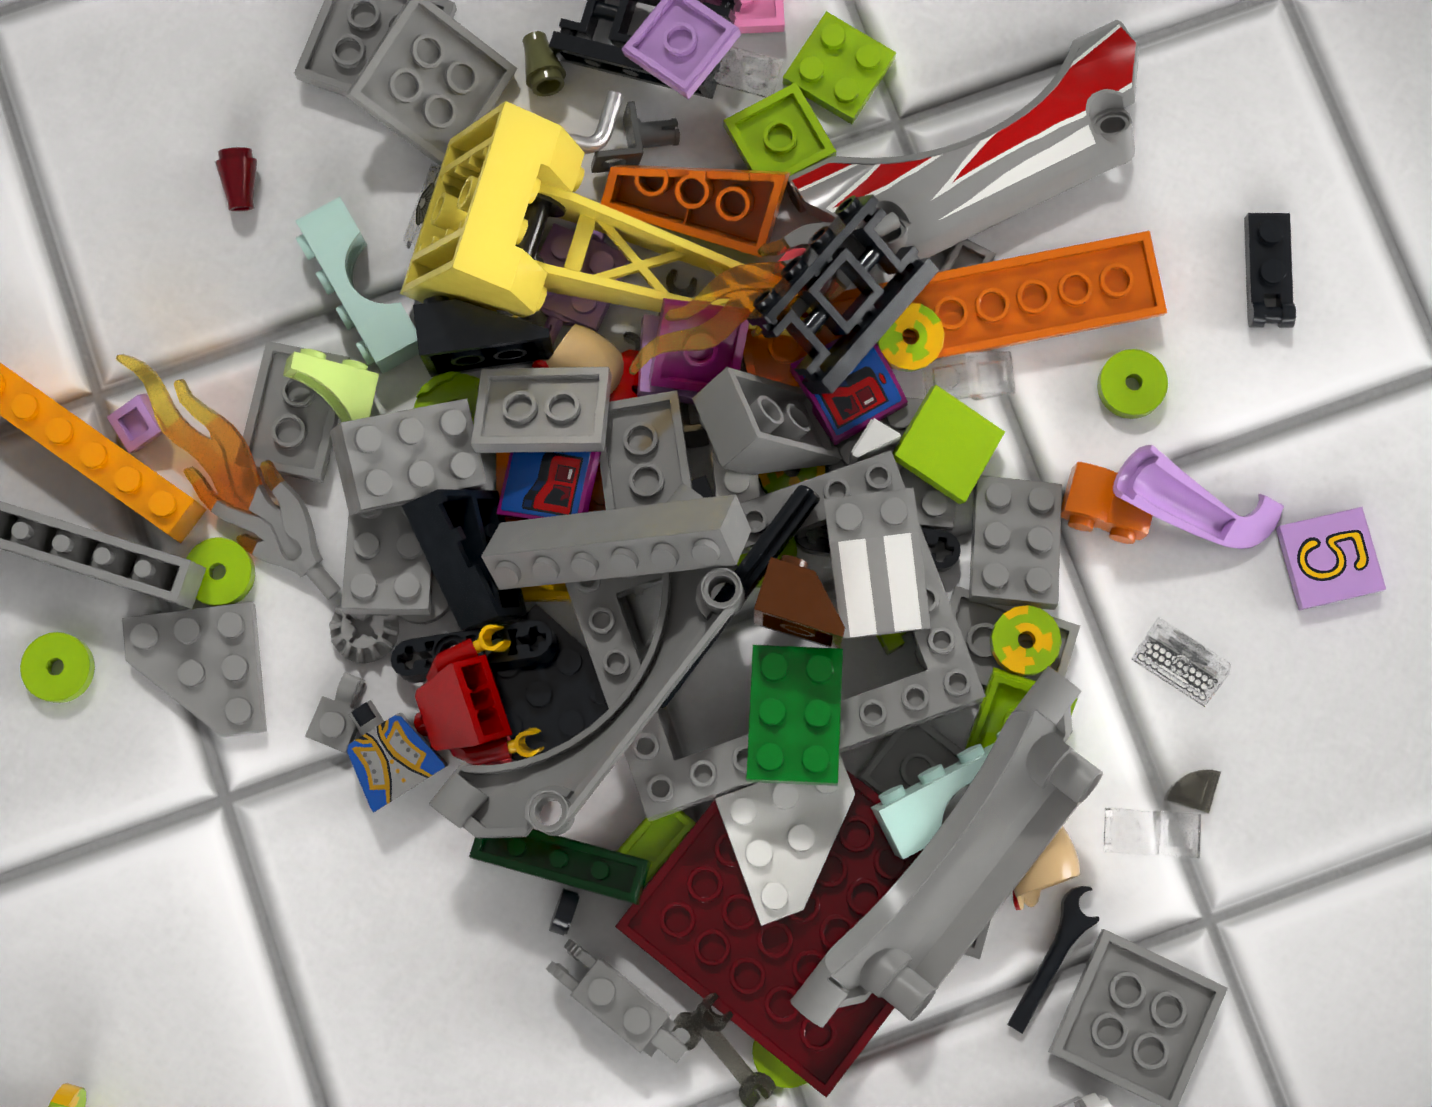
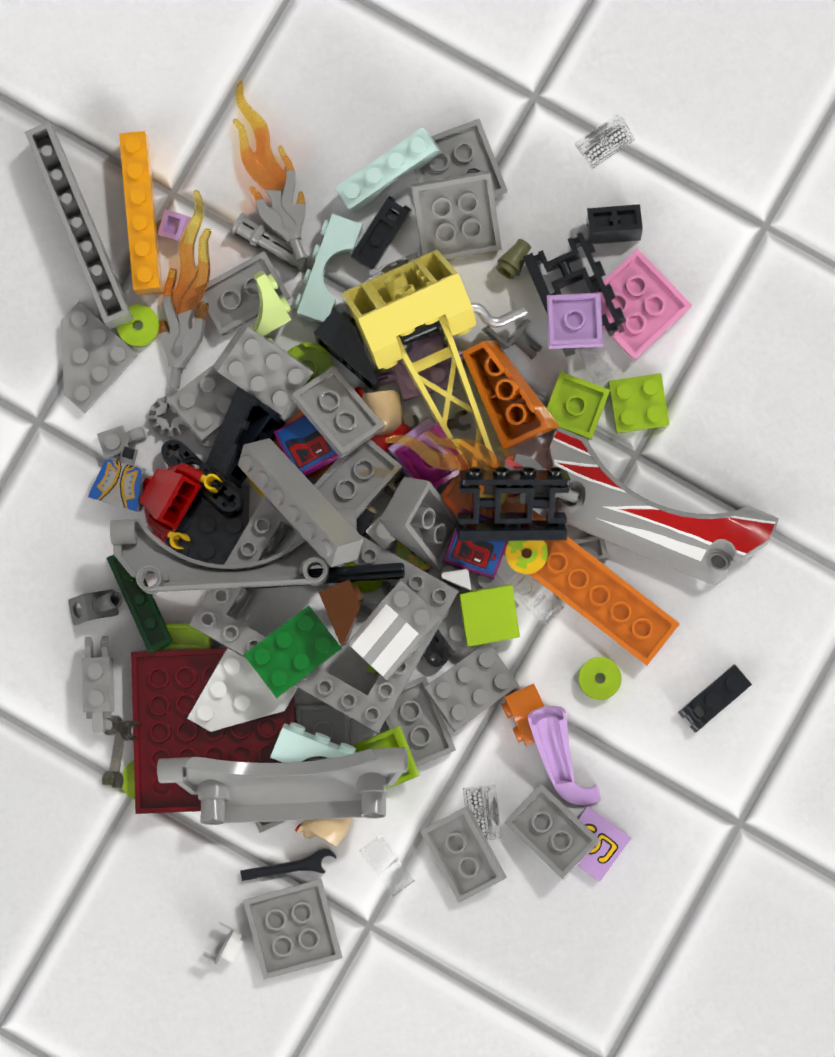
camera: 50 degrees right, 5 degrees up
(38, 662) = (20, 286): lime piece -> none
(202, 258) = (277, 183): none -> piece
(237, 175) = (331, 165): dark red cone -> none
(243, 334) = (259, 236): none -> light grey pin
(297, 143) = (375, 177): none -> light aqua arch
(372, 191) = (380, 234): none -> black plate
(517, 922) = (95, 605): none -> dark grey bracket
(564, 912) = (118, 623): black tile -> none
(1036, 624) = (436, 724): lime piece -> none
(1194, 790) = (424, 868): clear smoke tile -> none
(1218, 725) = (463, 854): none -> light grey plate
(1280, 592) = (552, 831): none -> light grey plate

